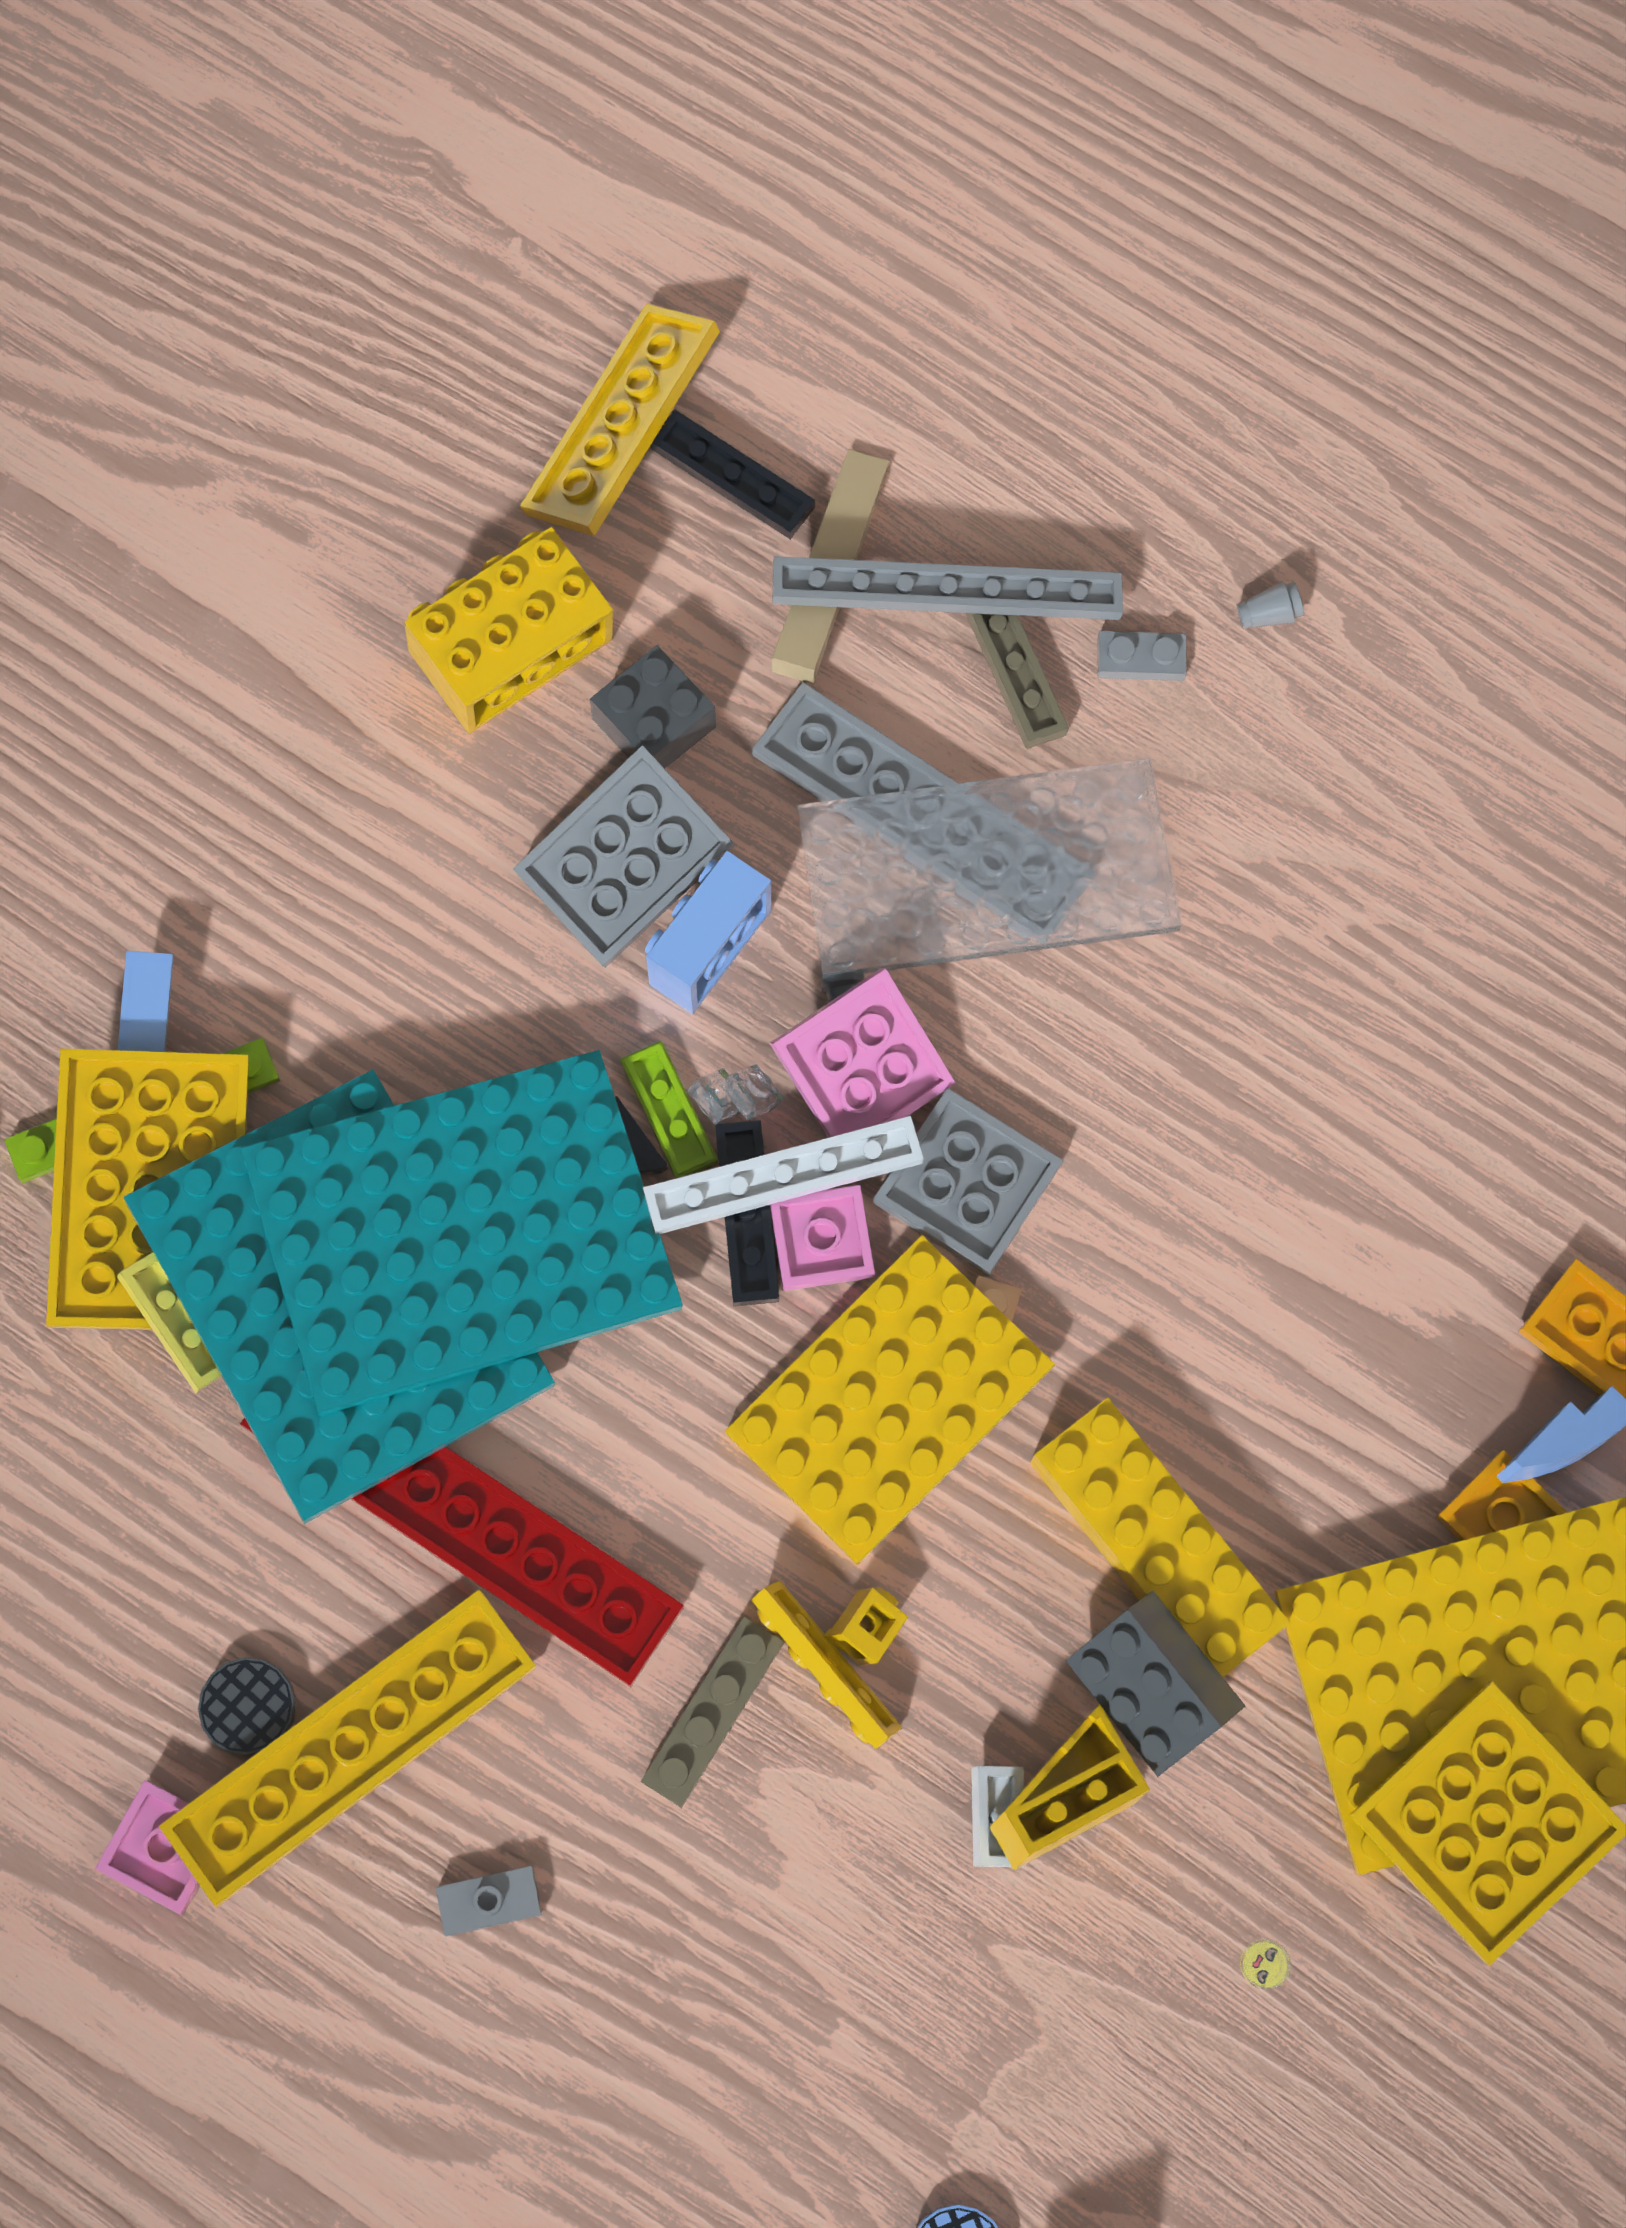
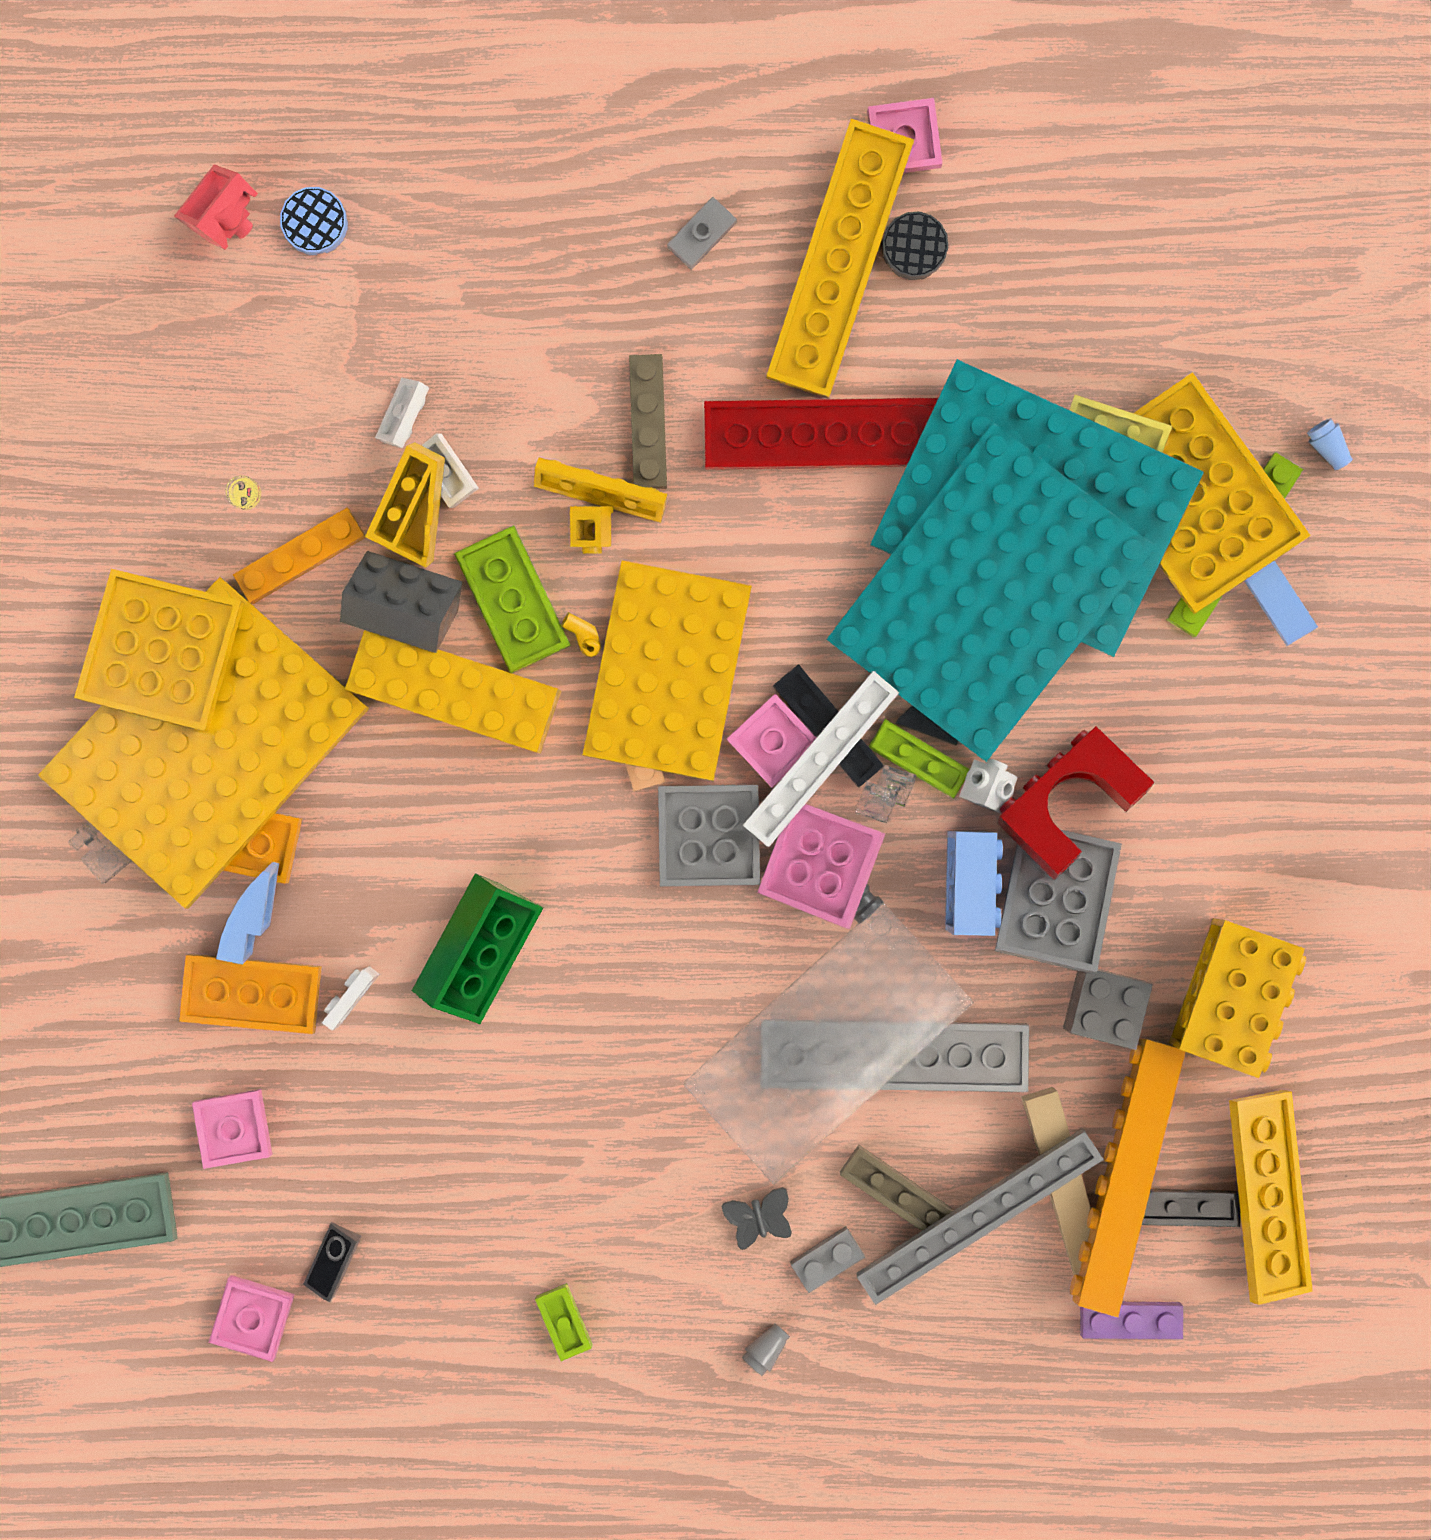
camera: 150 degrees right, 15 degrees up
(594, 961) = (1090, 759): none -> red arch
(613, 1025) = (988, 784): none -> white brick
(759, 528) = (1127, 1177): none -> light orange brick
(855, 395) = (1134, 1321): none -> medium lavender plate
(957, 1507) = (585, 633): none -> yellow arm
(1005, 1925) = (402, 412): none -> white plate
(1017, 1608) = (512, 599): none -> lime tile
(1190, 740) = (760, 1219): none -> dark grey piece
(1244, 1836) = (299, 556): none -> light orange plate
(1322, 1229) = (476, 949): none -> green slope
(1479, 772) = (563, 1322): none -> lime plate
(1488, 1278) = (341, 1007): none -> white plate

